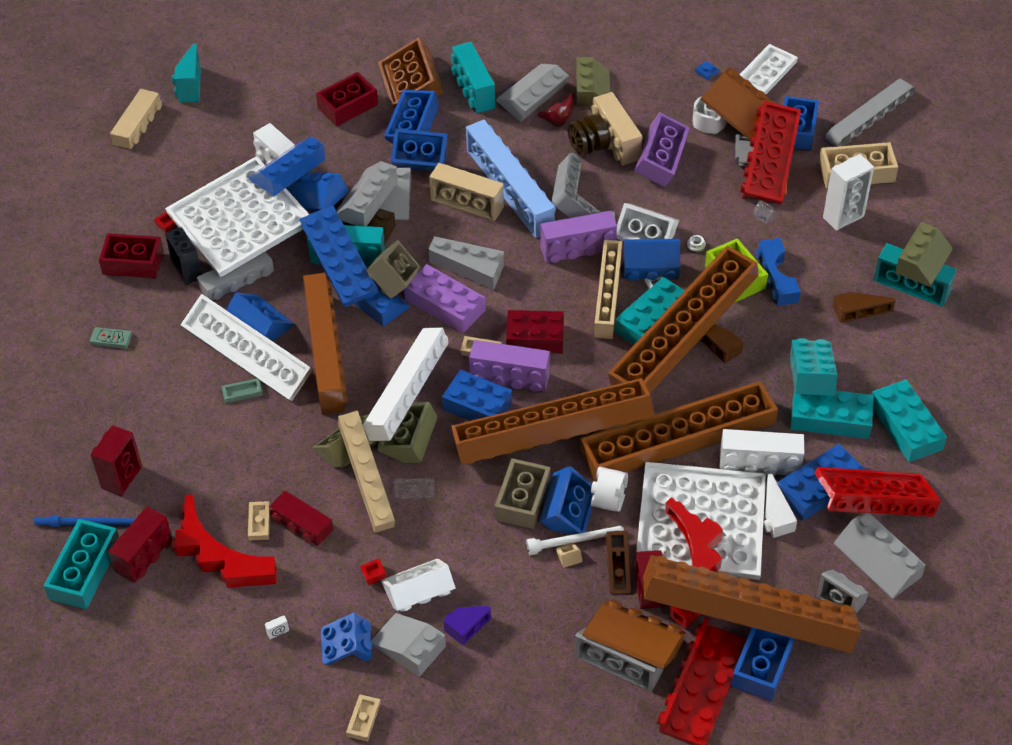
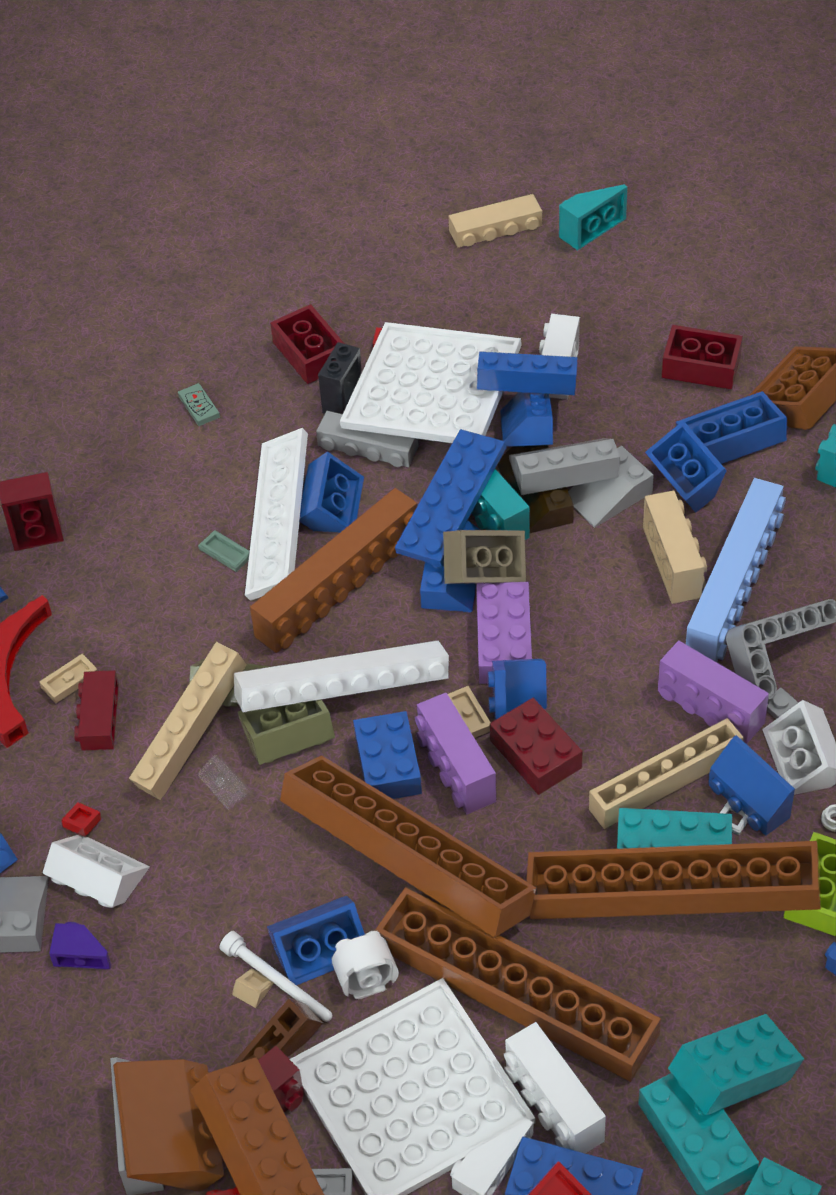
camera: 55 degrees right, 0 degrees up
(468, 260) = (581, 622): light grey wedge -> none
(490, 314) = (516, 683): none -> blue bracket
(522, 493) = (289, 883): dark tan brick -> none
(701, 540) = (365, 1105): red arch -> none
(723, 343) = (700, 945): reddish brown slope -> none

